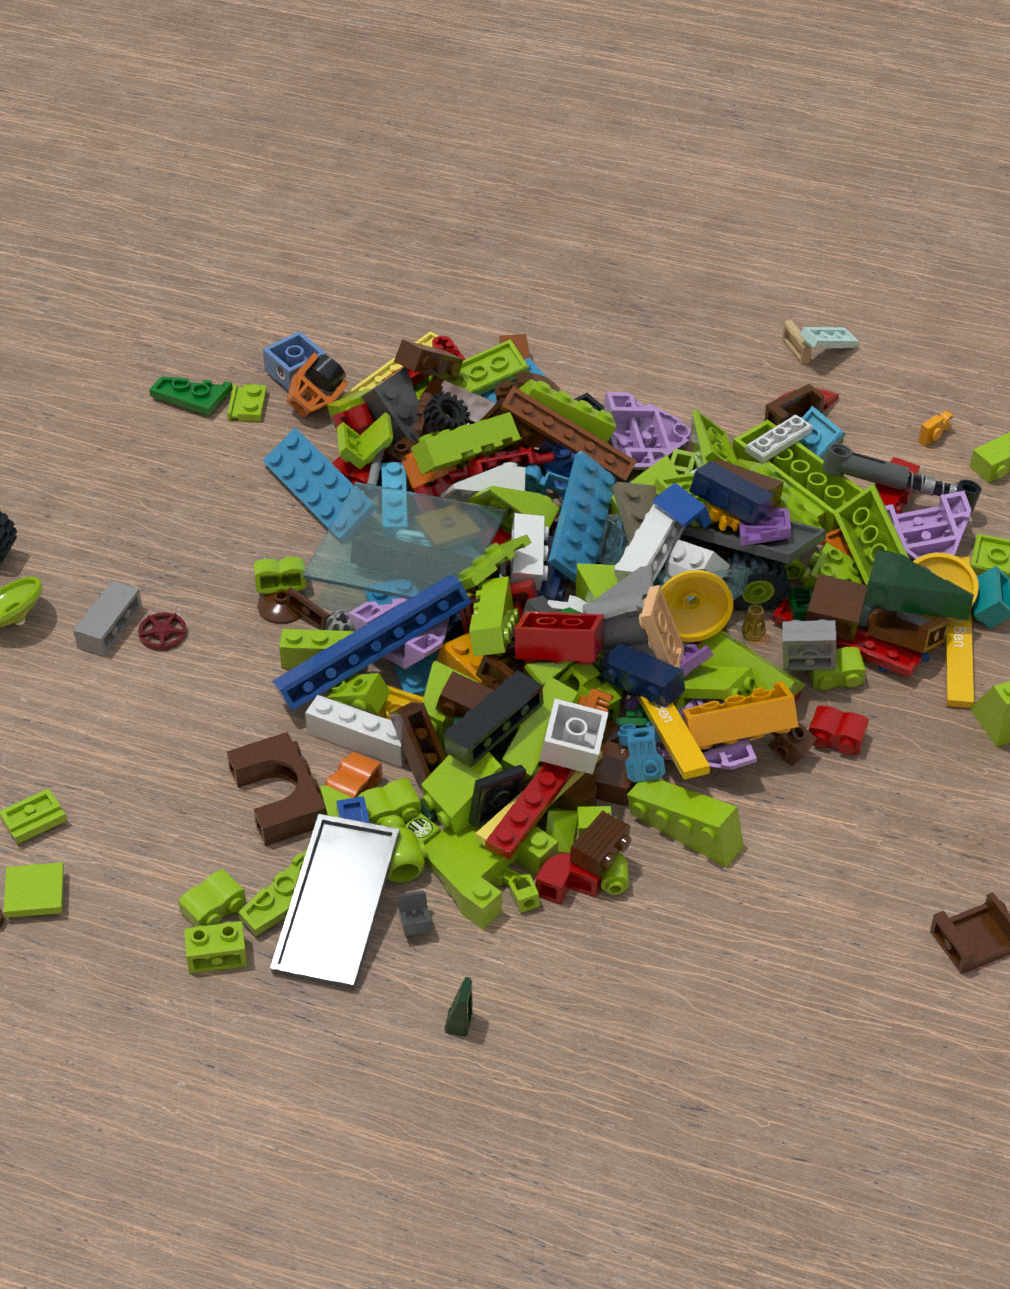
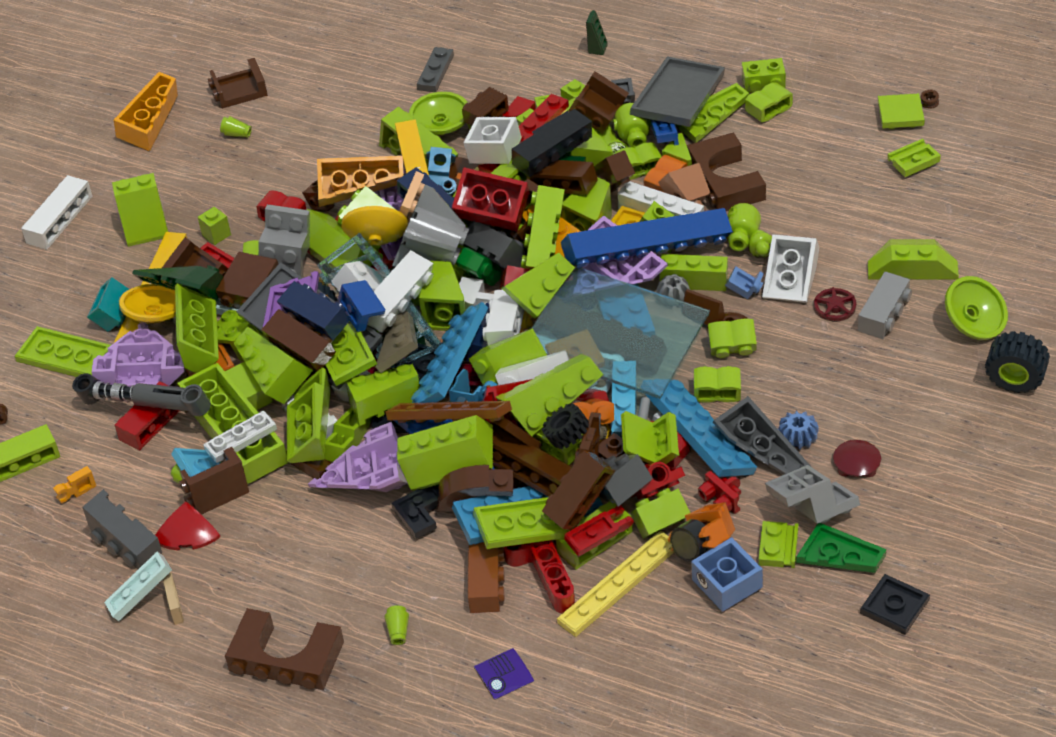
camera: 170 degrees left, 0 degrees up
(65, 672) = (913, 260): none -> lime wedge
(149, 361) = (895, 604): none -> black tile
(163, 474) = (857, 458): none -> dark red dish
(206, 661) = (790, 268): none -> white slope
(211, 411) = (812, 494): none -> light grey bracket
(218, 489) = (799, 429): none -> medium blue gear
(241, 686) = (760, 243): none -> lime animal
(258, 643) = (744, 283): none -> medium blue bracket
(260, 707) = (744, 222): none -> lime piece
(261, 480) = (757, 435): none -> dark grey wedge
(297, 532) = (717, 384): none -> lime brick
(300, 423) = (723, 489): none -> red hips
(329, 746) = (686, 184): none -> nougat torso
(448, 862) = (599, 101): none -> reddish brown panel
(490, 310) = (504, 673): none -> dark purple sticker
(588, 331) = (397, 623): none -> lime cone
(660, 296) = (307, 668): none -> reddish brown arch
(669, 853) = (439, 112): none -> lime dish
(694, 972) = (435, 69): none -> dark grey plate
(867, 382) = (118, 532): none -> dark grey wedge
(914, 703) = (214, 225): none -> lime brick
(950, 857) = (234, 127): none -> lime cone

